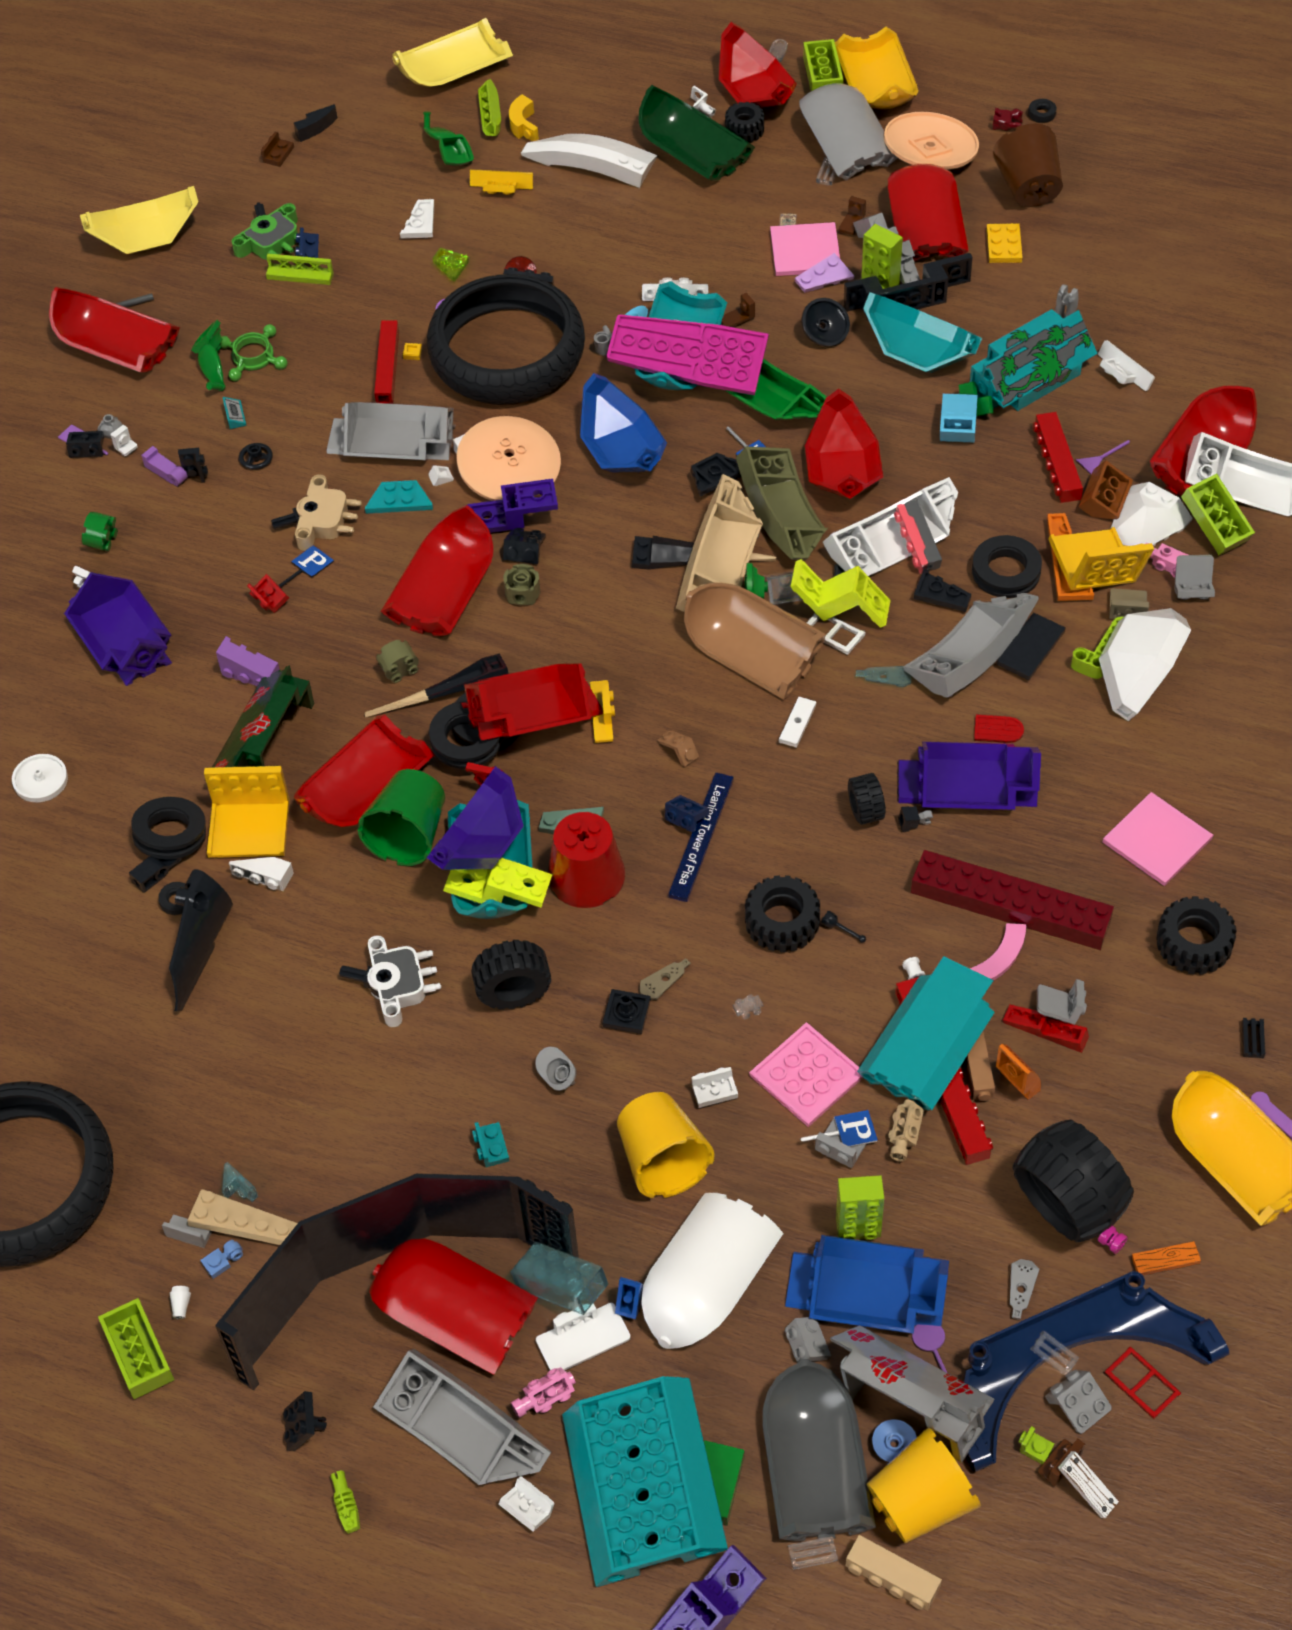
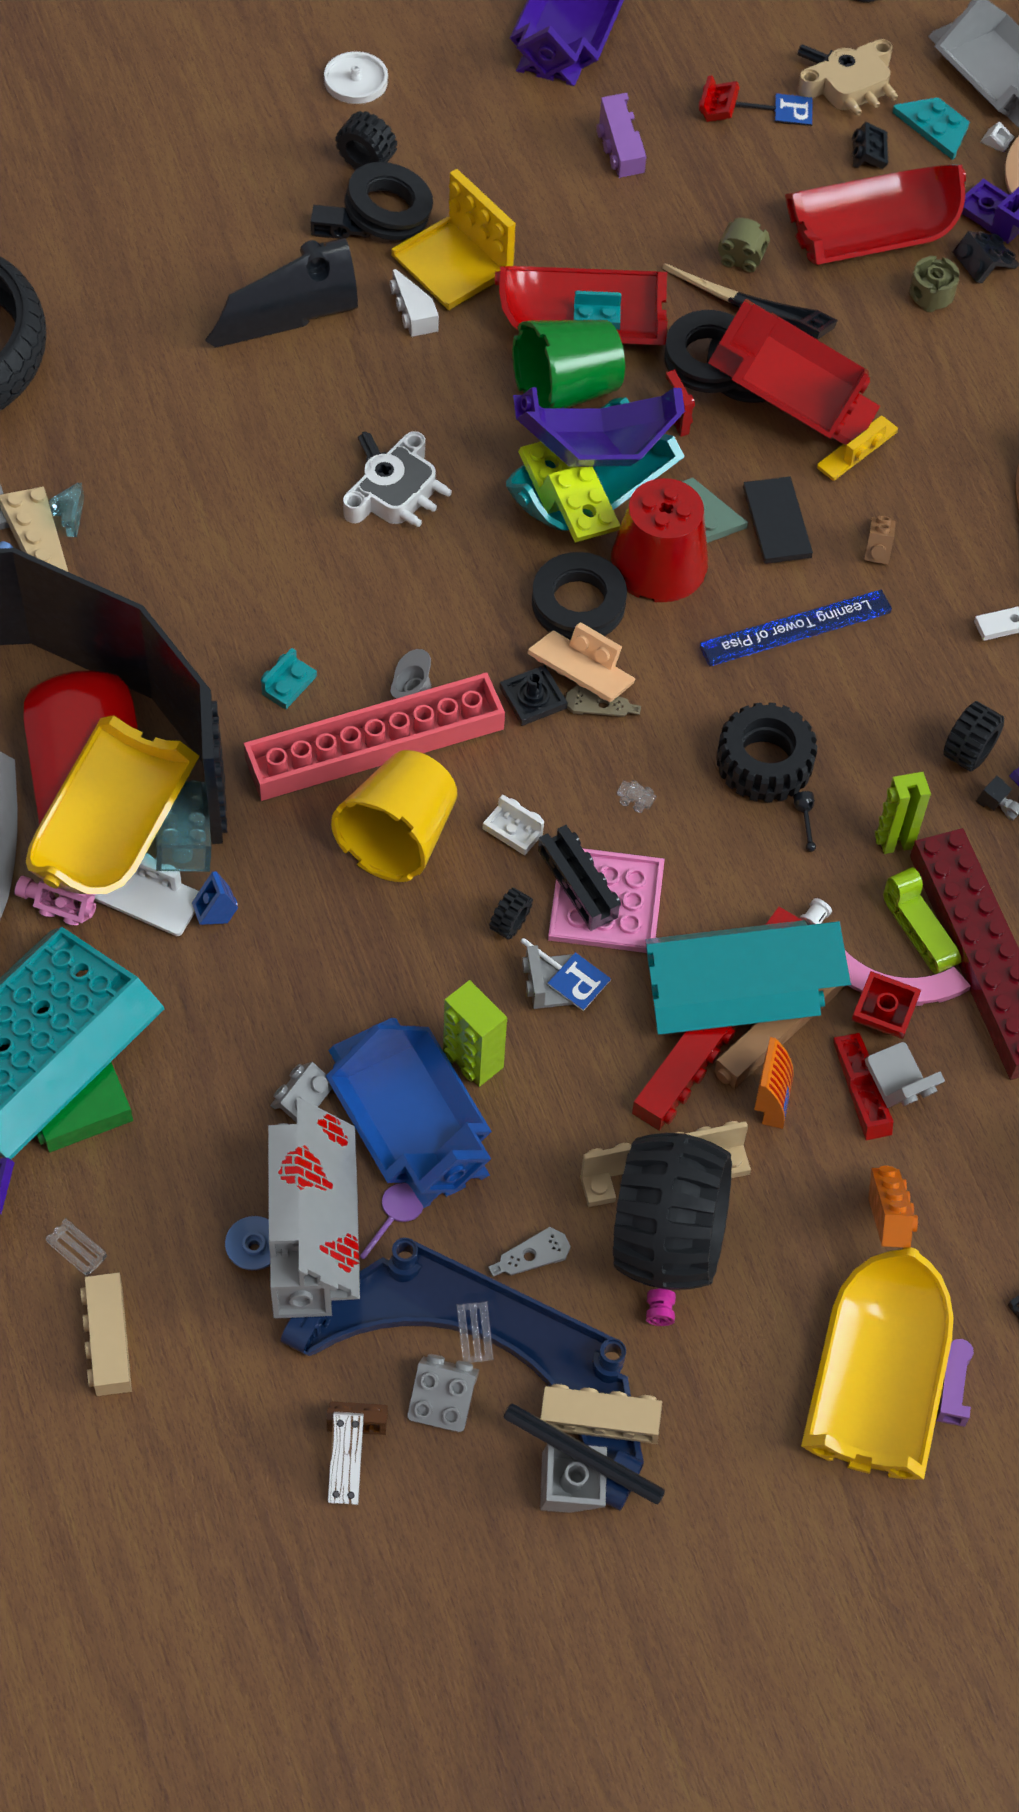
camera: 45 degrees right, 5 degrees up
(110, 807) = (365, 140): none -> black tyre
(262, 717) = (600, 178): dark green panel -> none
(368, 774) = (598, 306): none -> teal bracket
(383, 543) = (870, 145): none -> black bracket
(511, 974) = (471, 563): black tyre -> none
(521, 1310) = (108, 809): none -> yellow panel
(576, 911) = (575, 568): none -> black tyre
(585, 1113) = (372, 735): none -> coral brick
(616, 789) = (777, 520): none -> black tile
(628, 964) = (586, 660): none -> light nougat bracket
(685, 812) = (806, 591): dark blue bracket -> none
(706, 1269) = (300, 945): white panel -> none
(780, 1132) = (510, 913): none -> black tyre
(785, 1076) = (579, 877): none -> black brick
(815, 1455) = (175, 1178): dark grey panel -> none
(895, 870) = (903, 812): none -> lime brick
(905, 1129) = (619, 1027): tan brick -> none
(922, 1489) = (207, 1295): yellow cone -> none
(964, 919) = (919, 922): none -> lime beam
(999, 1215) = (601, 1164): none -> tan bracket
(1009, 975) = (886, 1005): none -> red brick
(1035, 1446) = (357, 1381): lime bracket -> none
(1131, 1393) = (516, 1444): red window -> none
(1150, 1066) = (892, 1207): none -> orange brick
(1163, 1319) = (602, 1414): none -> tan brick
(1166, 1258) = (685, 1377): orange tile -> none
(1187, 1344) = (584, 1454): none -> black axle
(1192, 1364) = (569, 1483): none -> light grey slope

